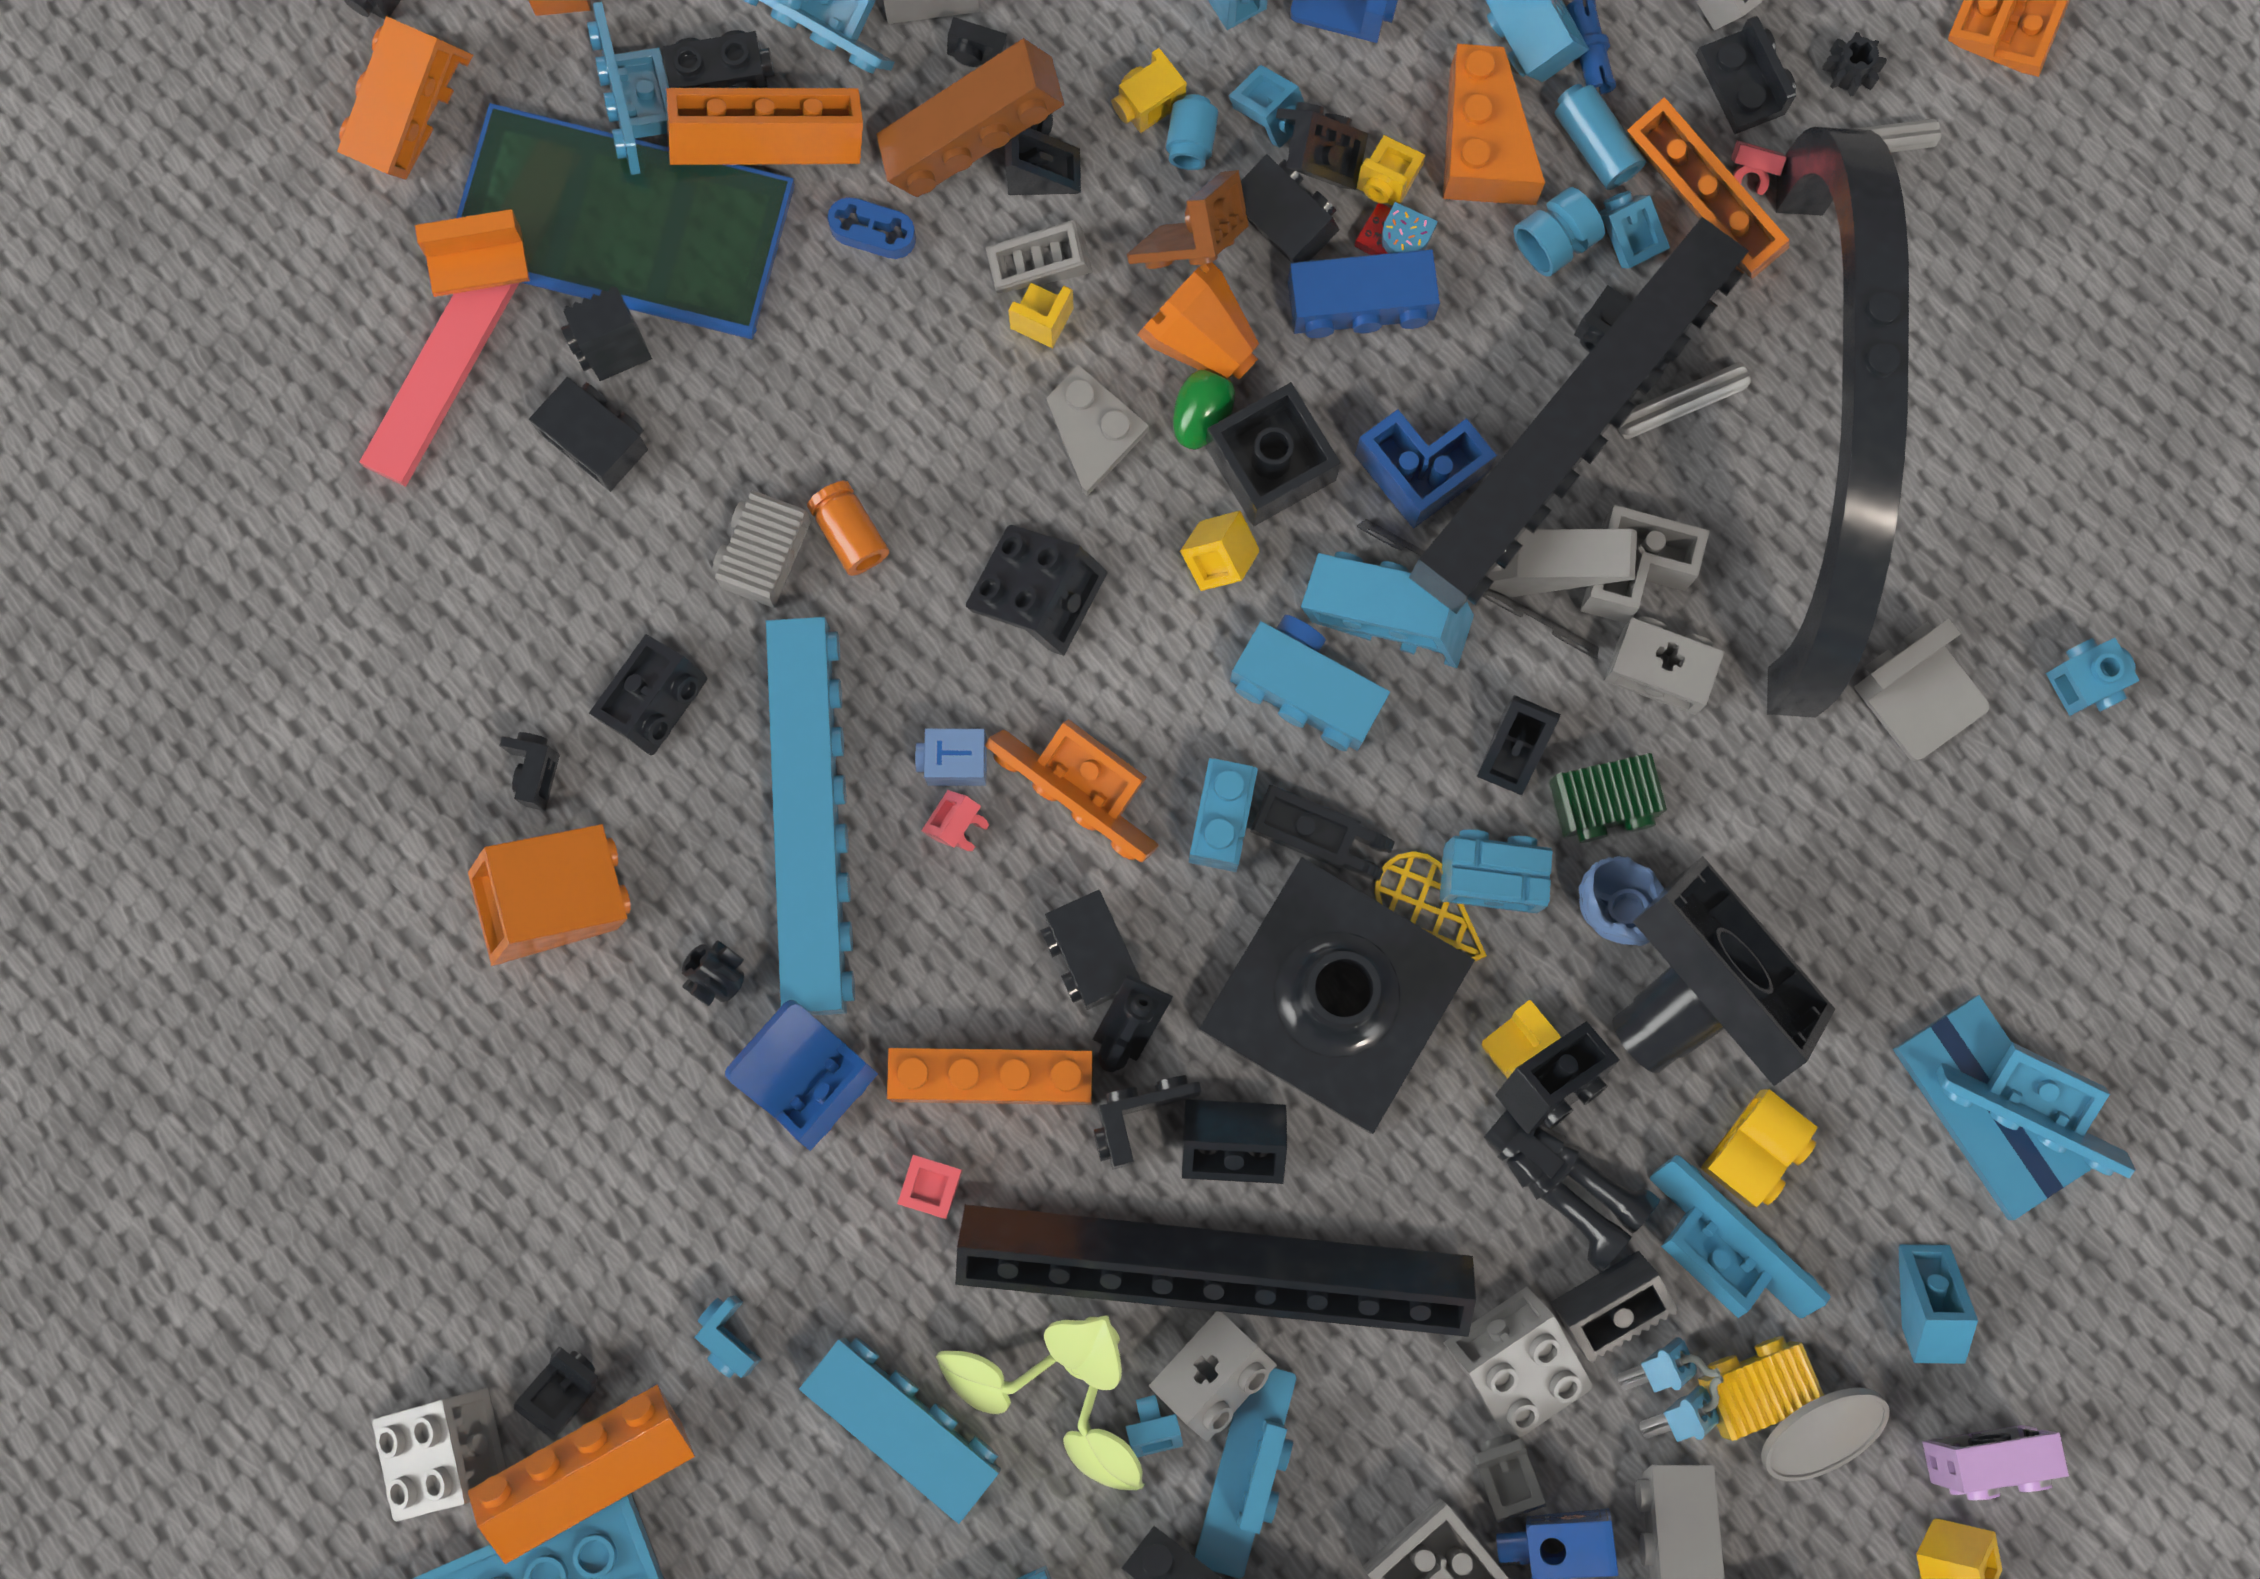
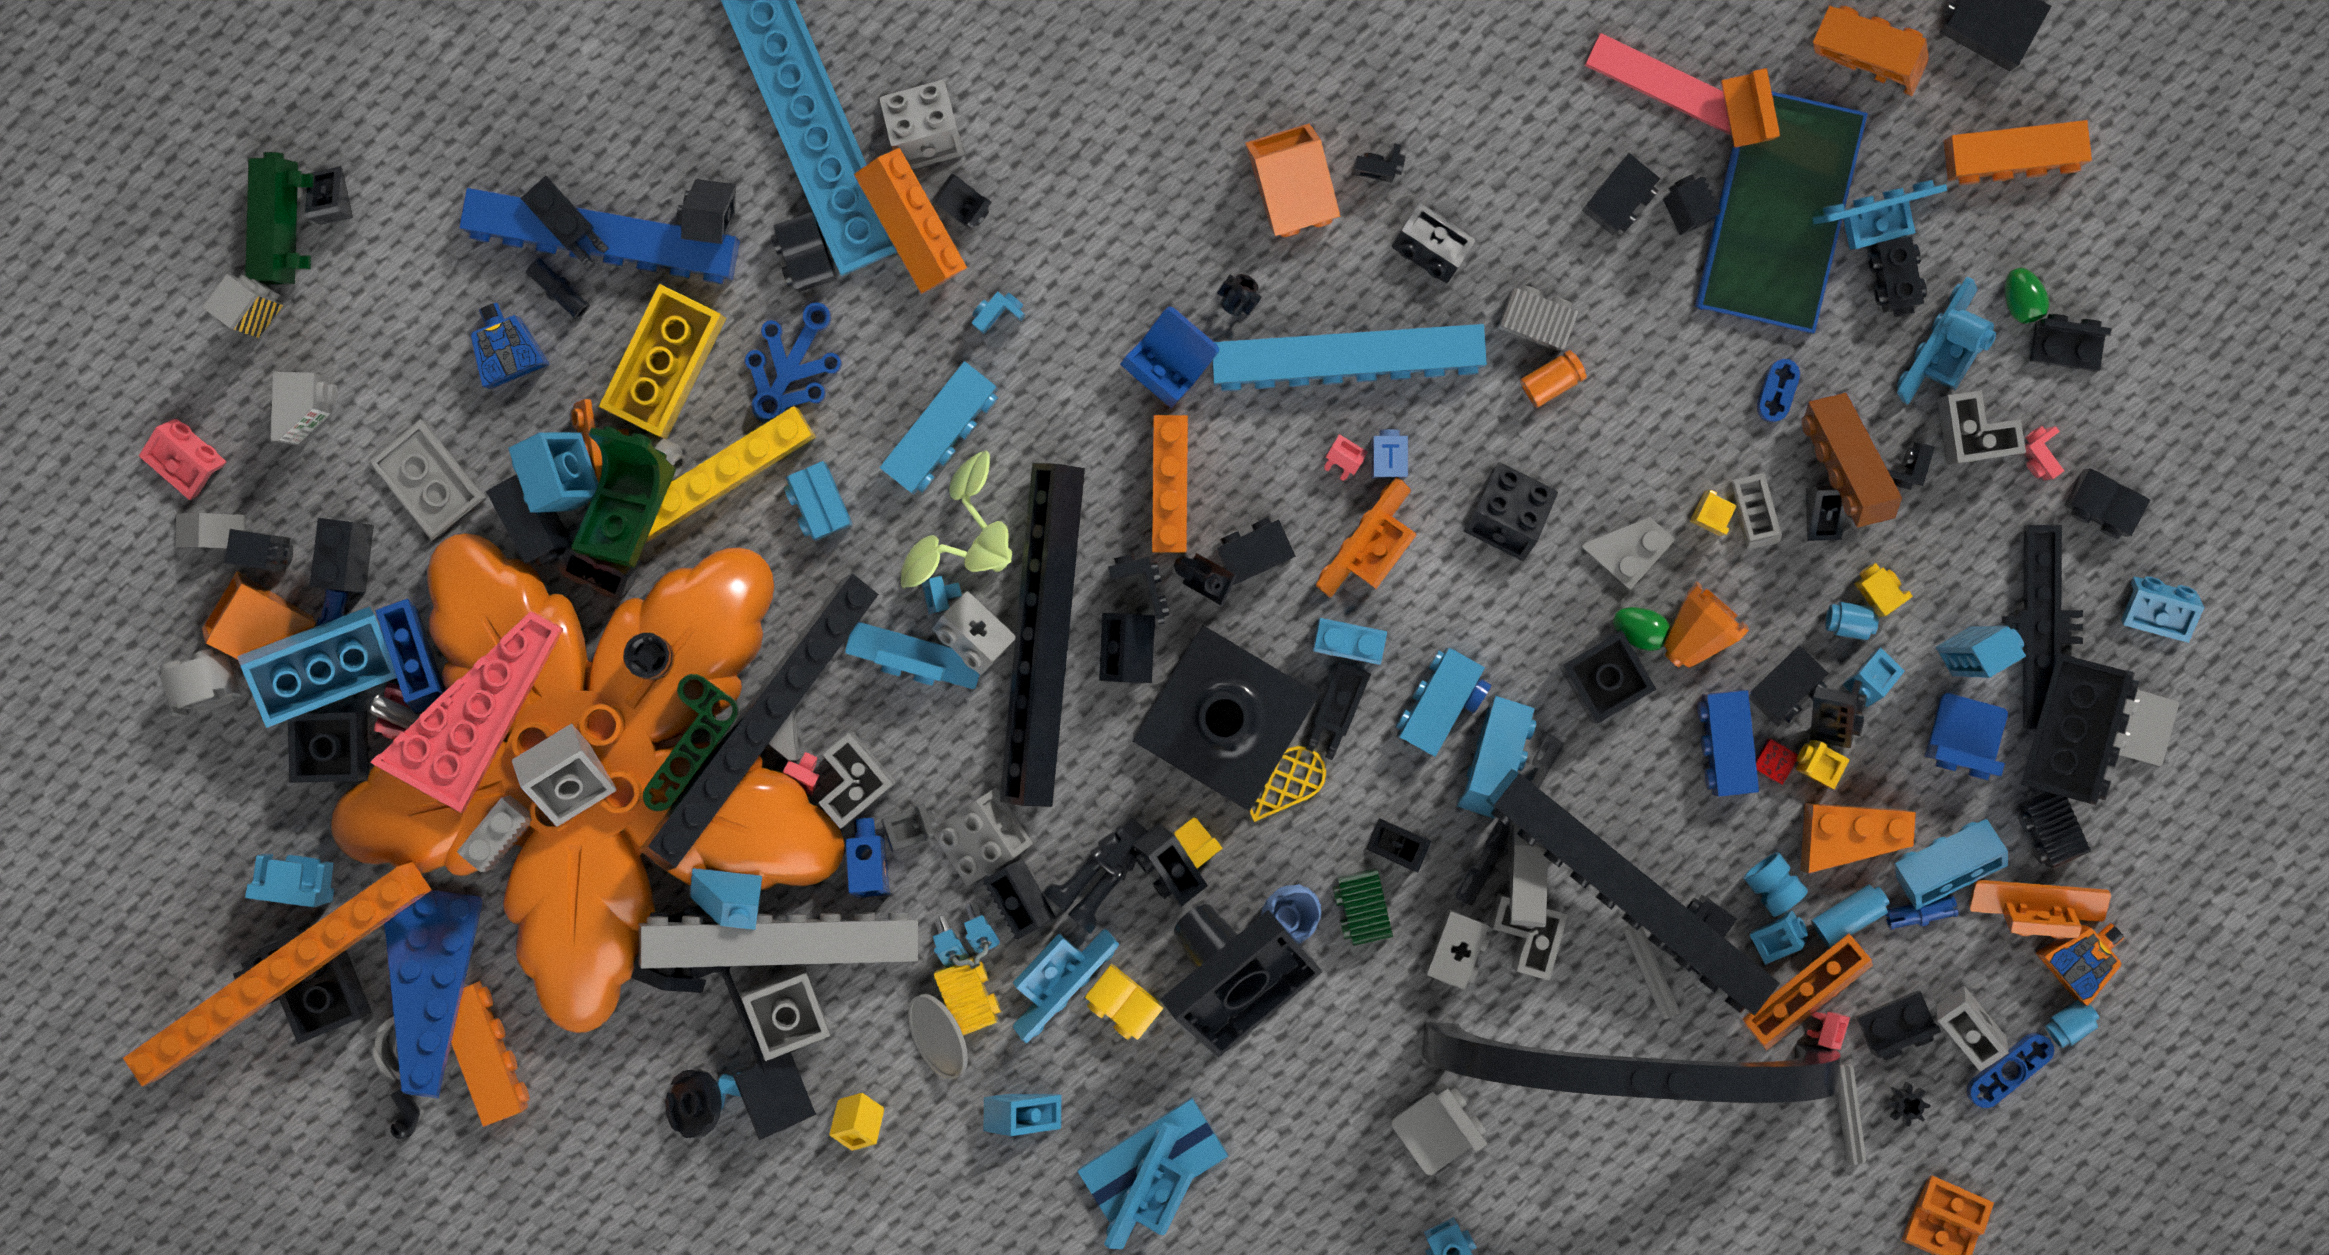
camera: 90 degrees right, 10 degrees up
(764, 126) = (1849, 312): orange brick -> none
(930, 1187) = (1096, 444): coral tile -> none
(1212, 223) = (1766, 623): dark orange bracket -> none
(1220, 550) = (1538, 640): yellow panel -> none
(1406, 230) = (1774, 774): dark azure tile -> none
(1421, 476) = (1590, 782): blue brick -> none
(1496, 873) = (1310, 828): dark azure brick -> none
(1996, 1459) = (923, 1150): lavender piece -> none

